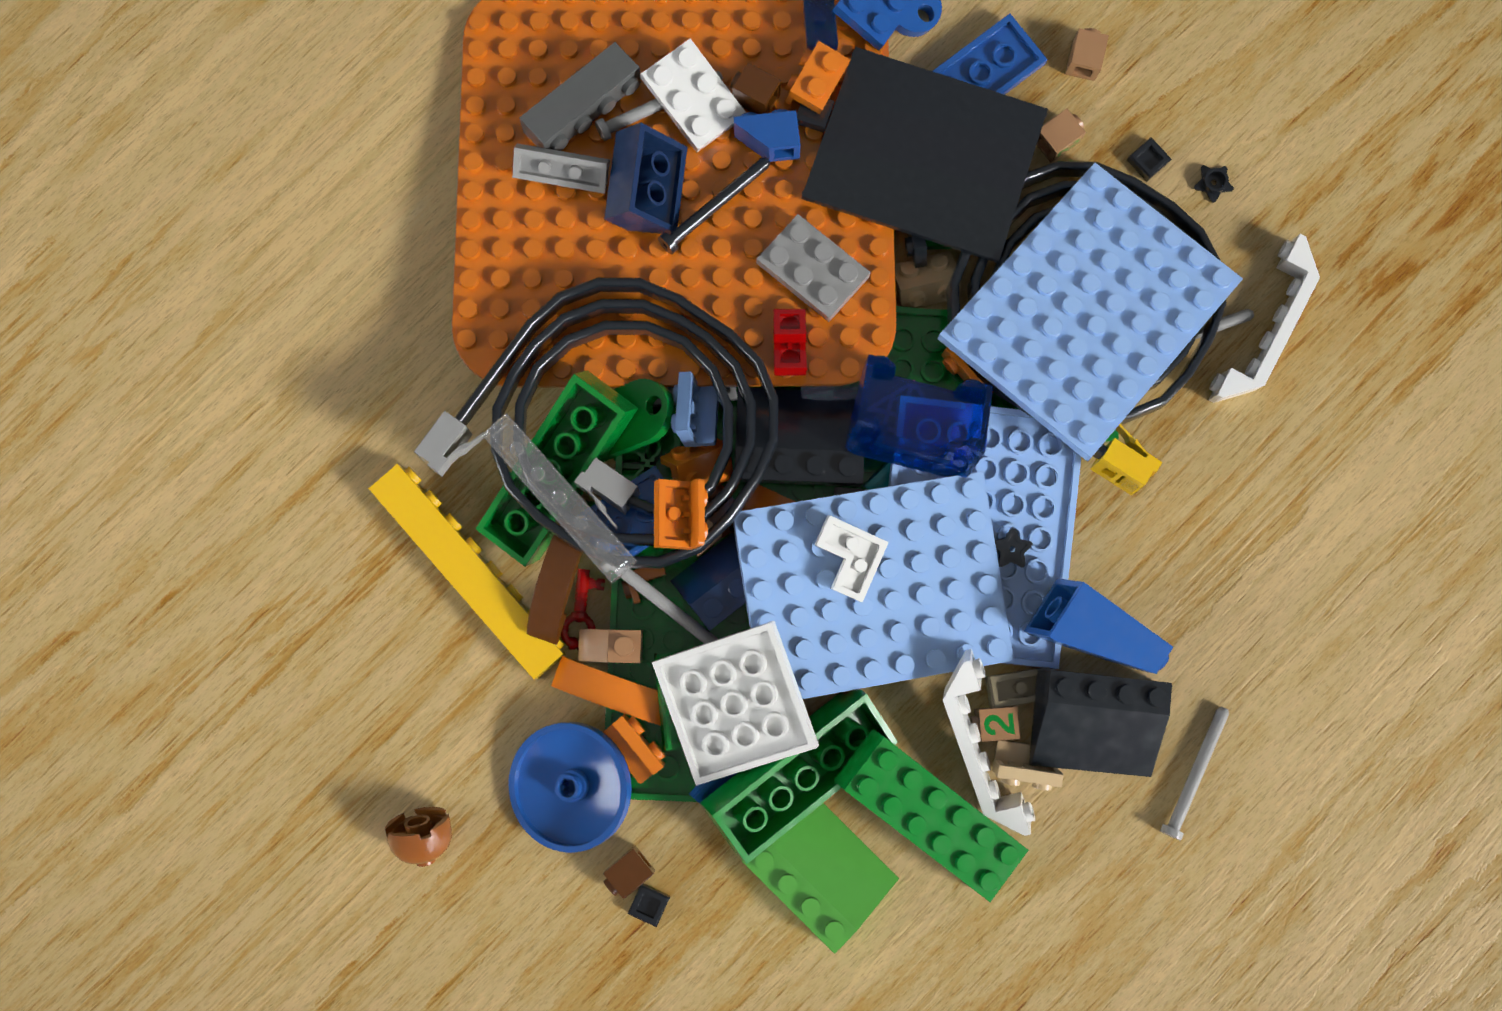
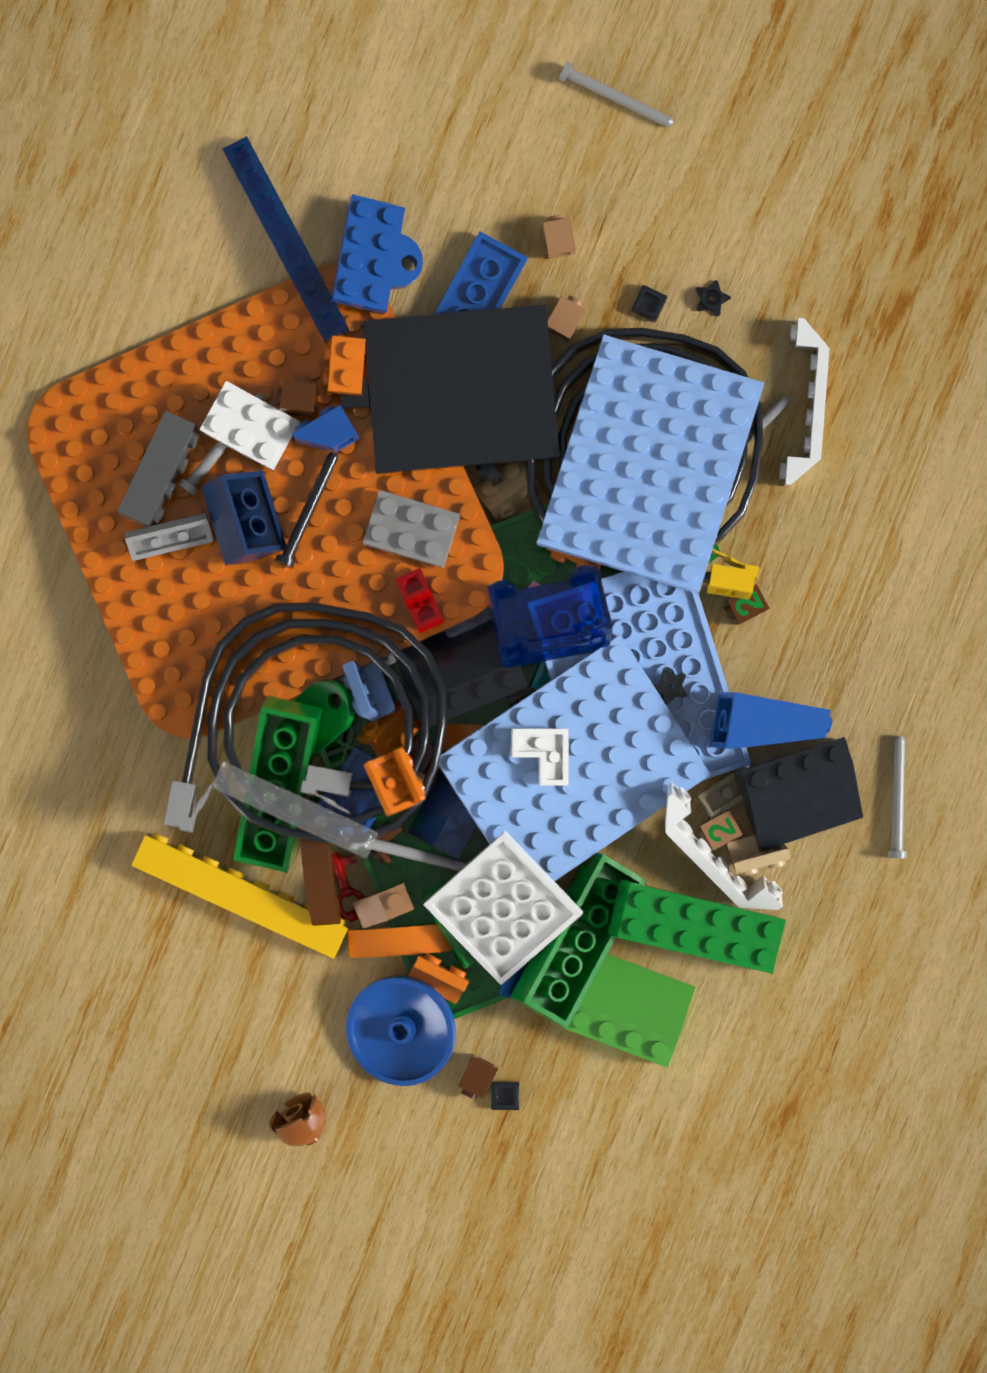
camera: 20 degrees left, 5 degrees up
(1118, 504) = (743, 609): none -> reddish brown brick

